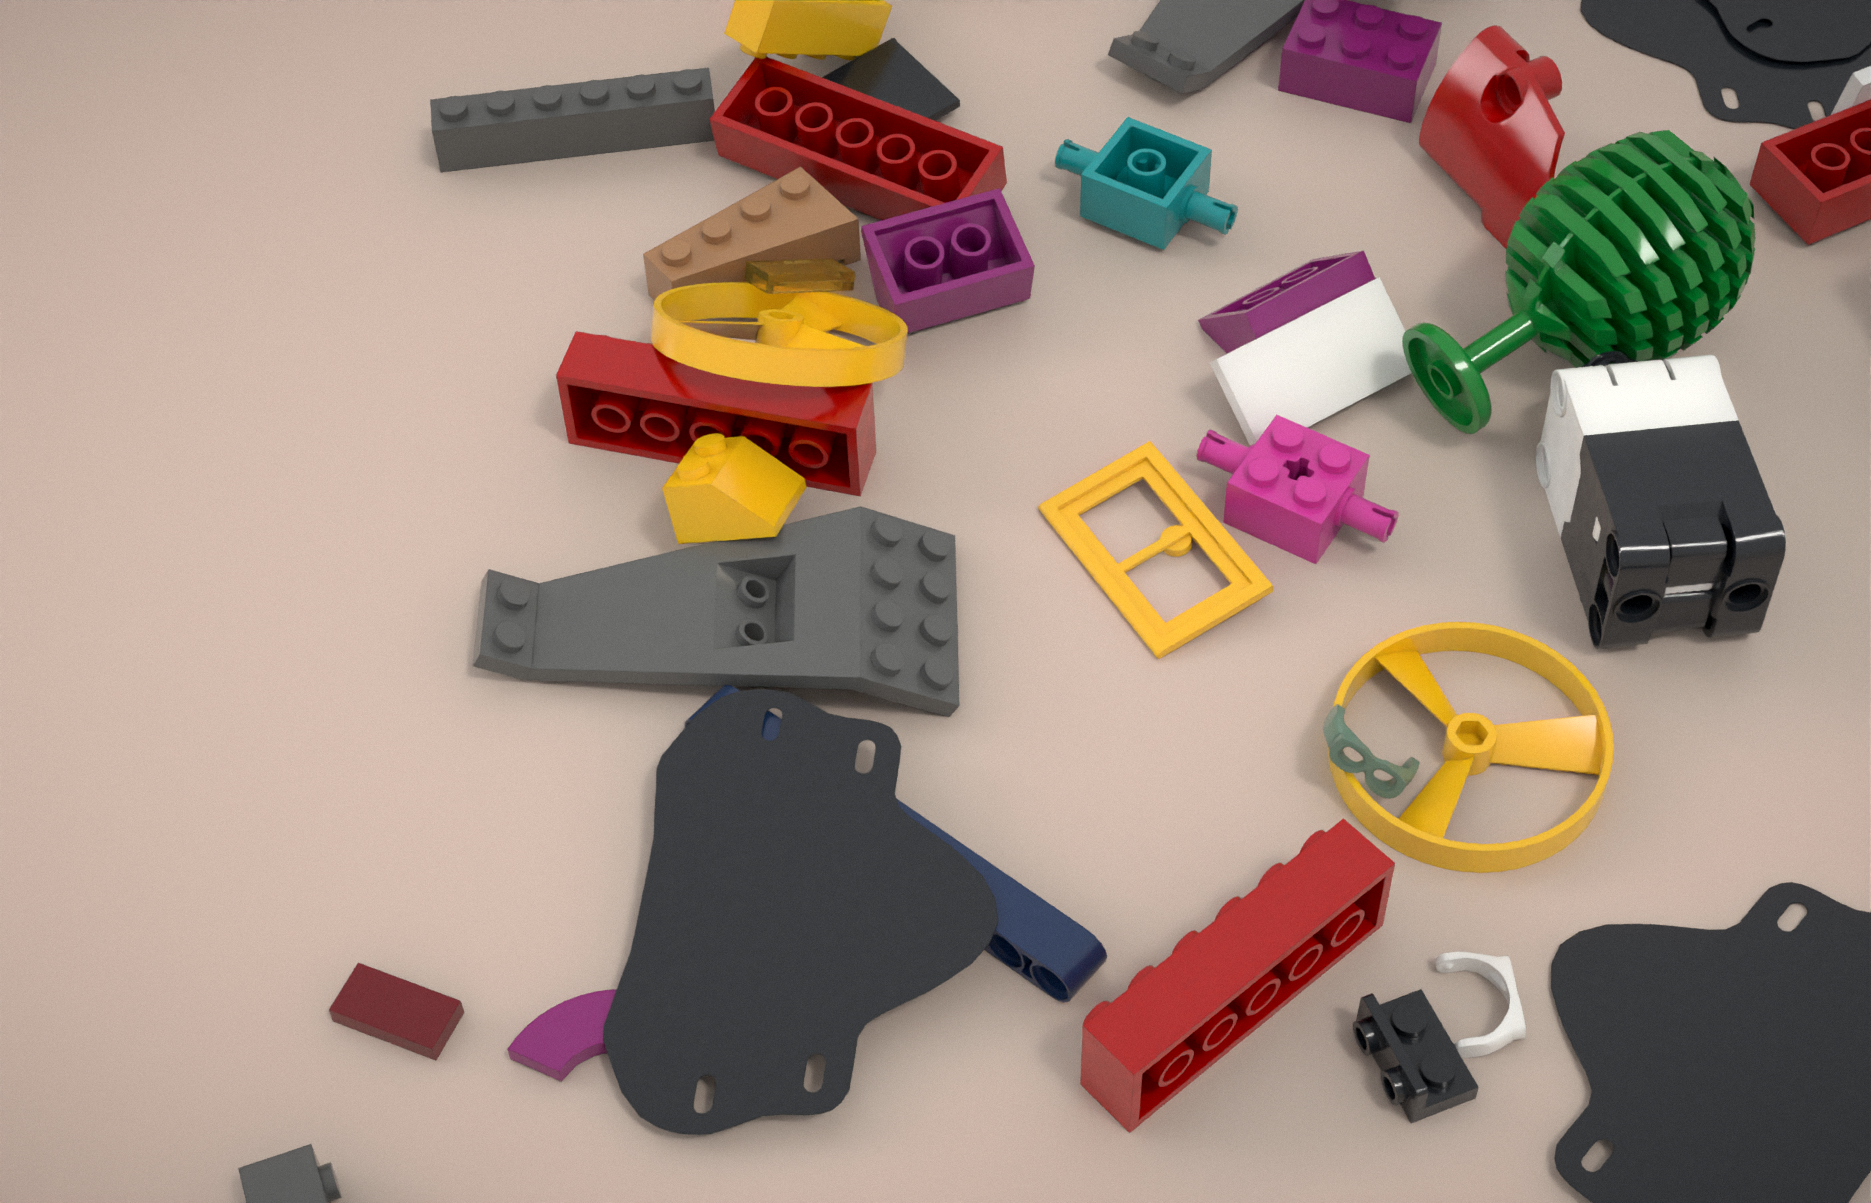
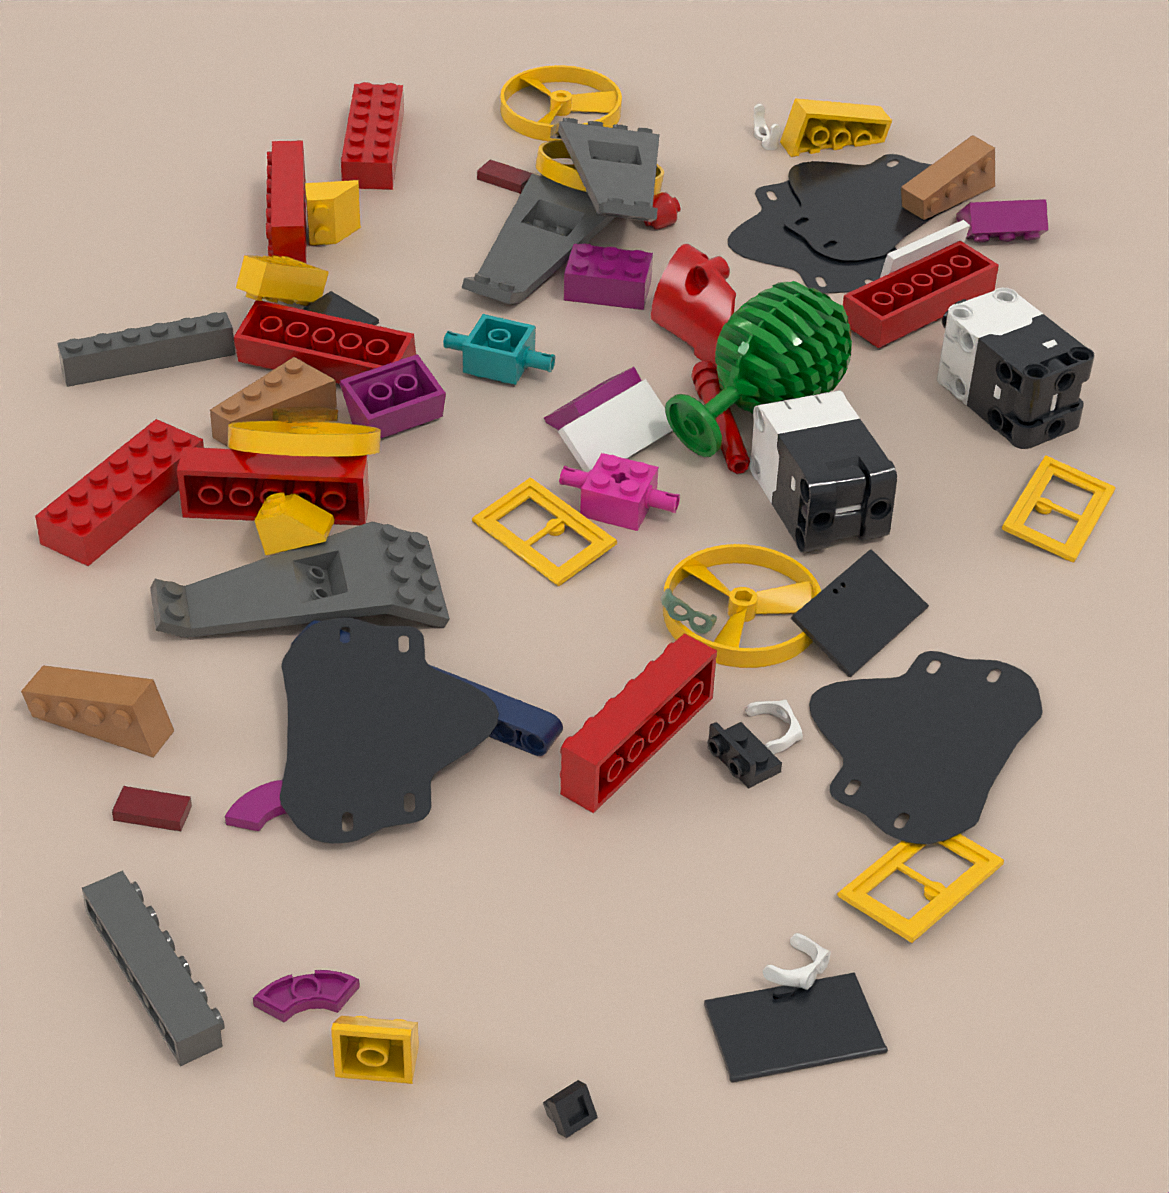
camera: 15 degrees left, 10 degrees down
(352, 806) = (101, 705): none -> medium nougat wedge
(467, 391) = (115, 494): none -> red brick
(1507, 378) = (707, 387): none -> red cylinder
(1675, 804) = (861, 615): none -> black container

